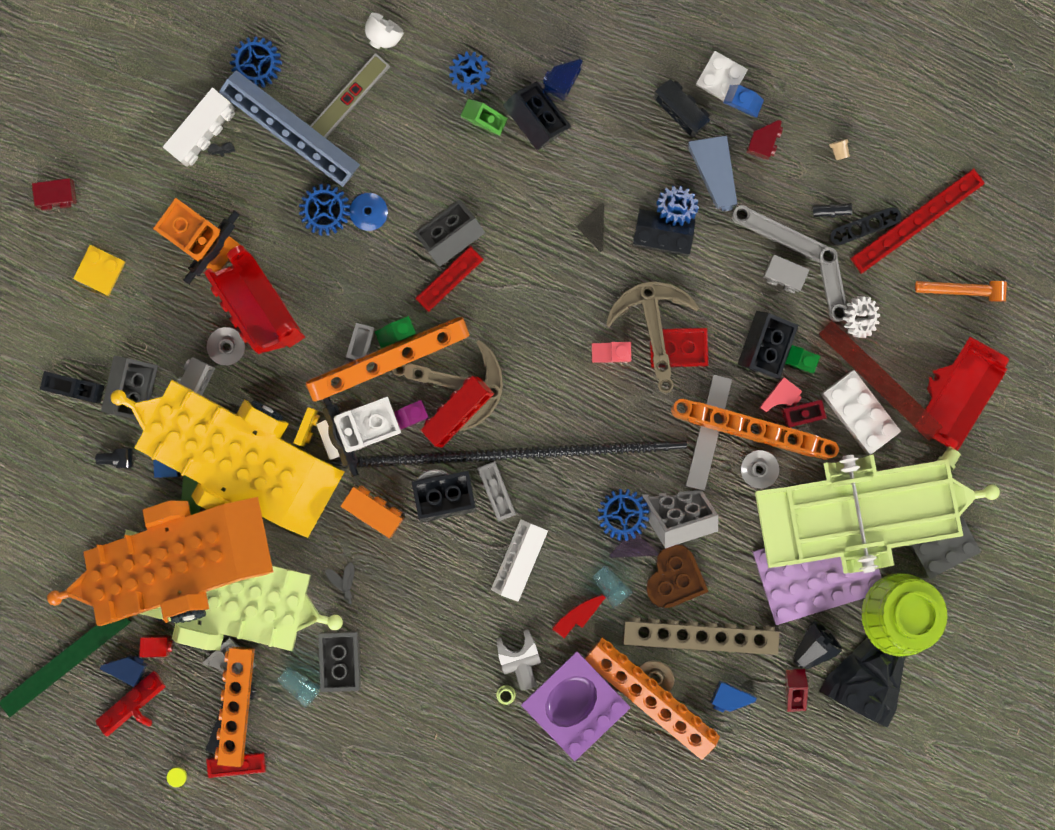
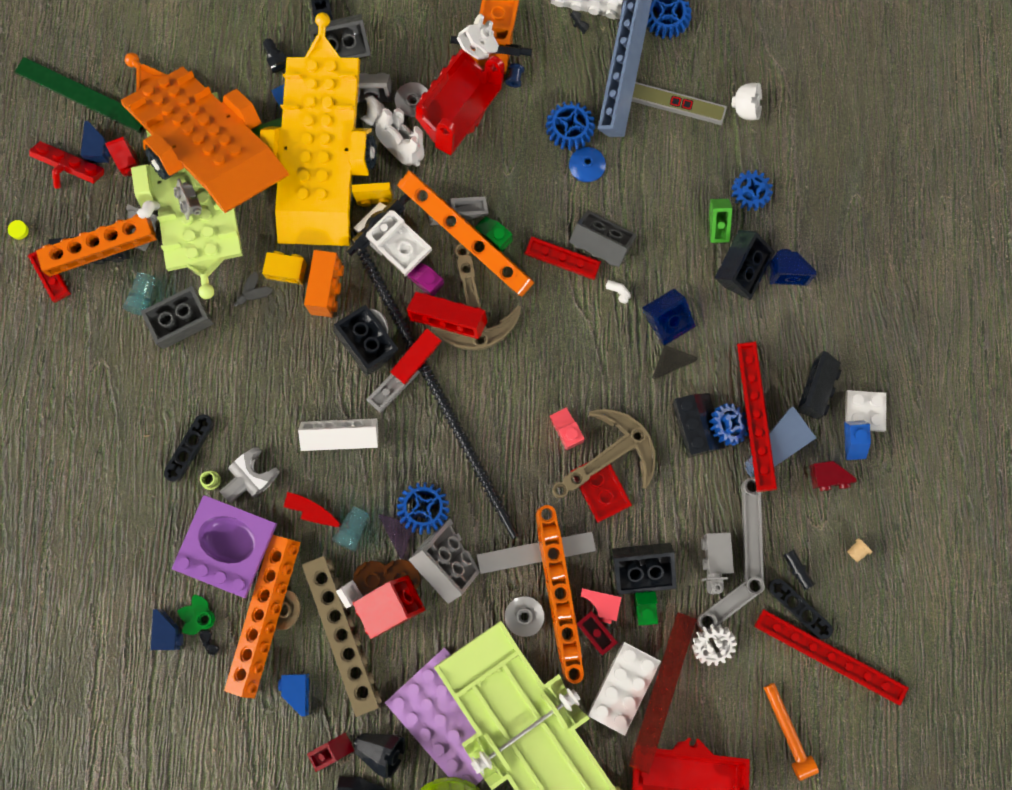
camera: 65 degrees right, 10 degrees down
(206, 257) = (478, 37): none -> white hinge
(227, 603) = (184, 193): none -> light grey hinge
(227, 643) = (147, 209): none -> white arm
(247, 237) = (514, 75): none -> dark blue bush
(253, 380) = (393, 134): none -> white animal
(336, 541) = (284, 267): none -> yellow brick
(464, 704) = (191, 449): none -> black beam
(481, 457) = (416, 356): none -> red tile
(504, 241) = (624, 294): none -> white arm
(552, 209) = (669, 316): none -> clear blue slope
(621, 760) = (194, 615): none -> green plate
(626, 791) = (165, 632): none -> dark blue slope
(658, 757) = (205, 637): none -> black piece
(669, 613) = (349, 593): none -> white plate
(681, 178) = (756, 417): none -> red tile
(698, 583) = (388, 606): none -> slope
(810, 290) = (715, 583): none -> light grey hinge

